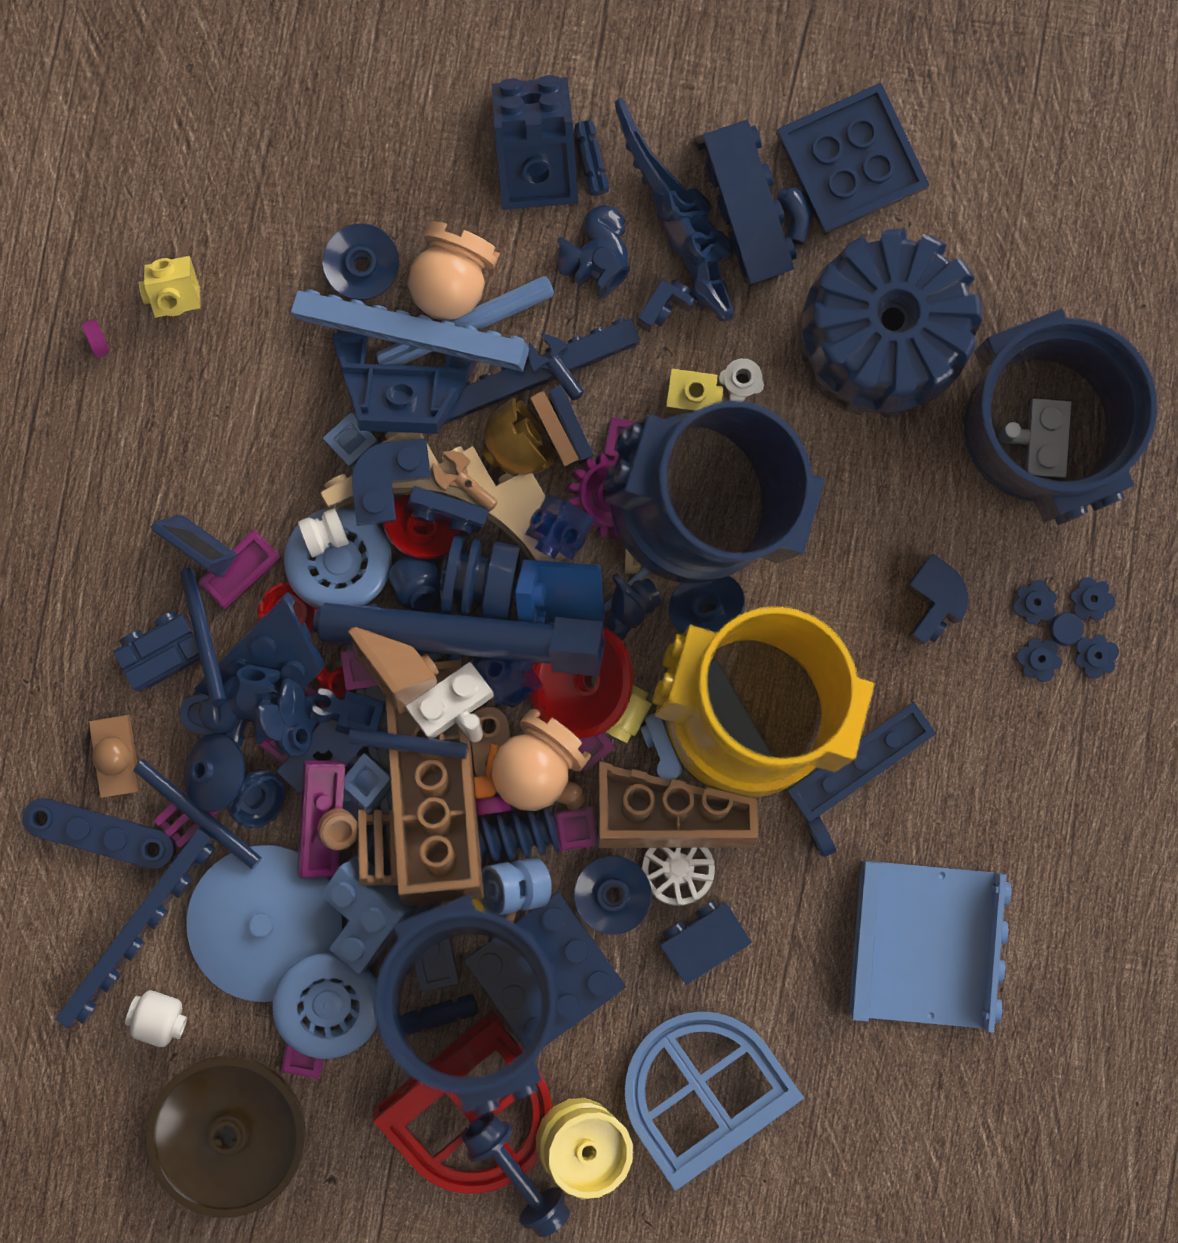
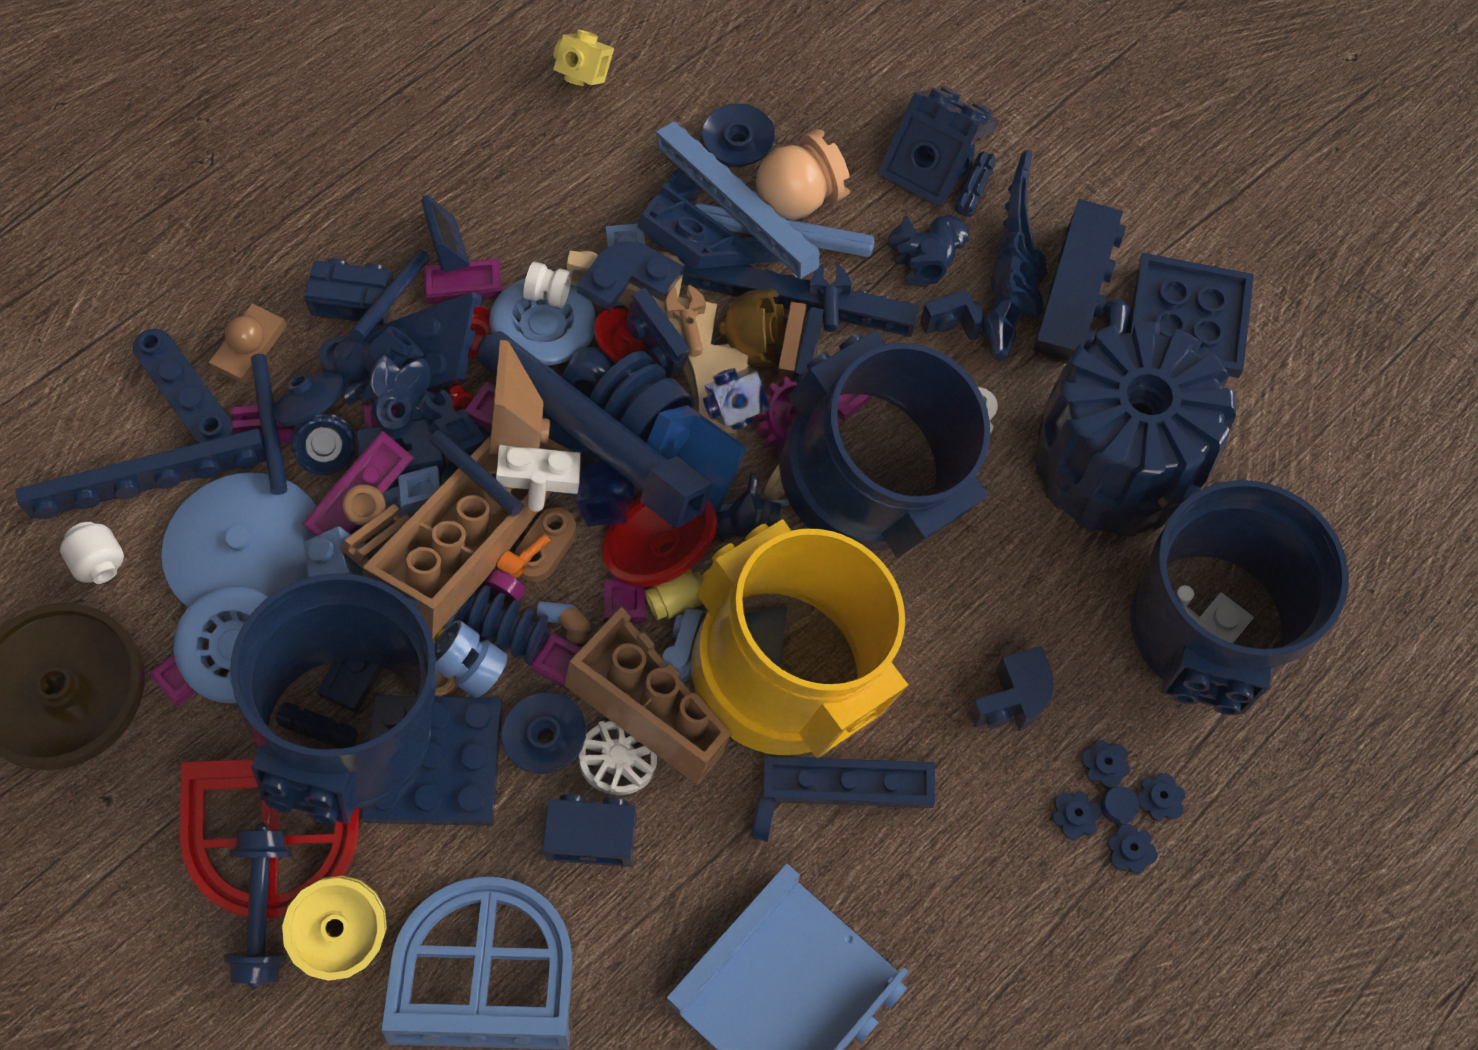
camera: 35 degrees right, 20 degrees down
(95, 338) = (498, 58): magenta tile -> none
(534, 766) = (564, 571): light nougat tile -> none

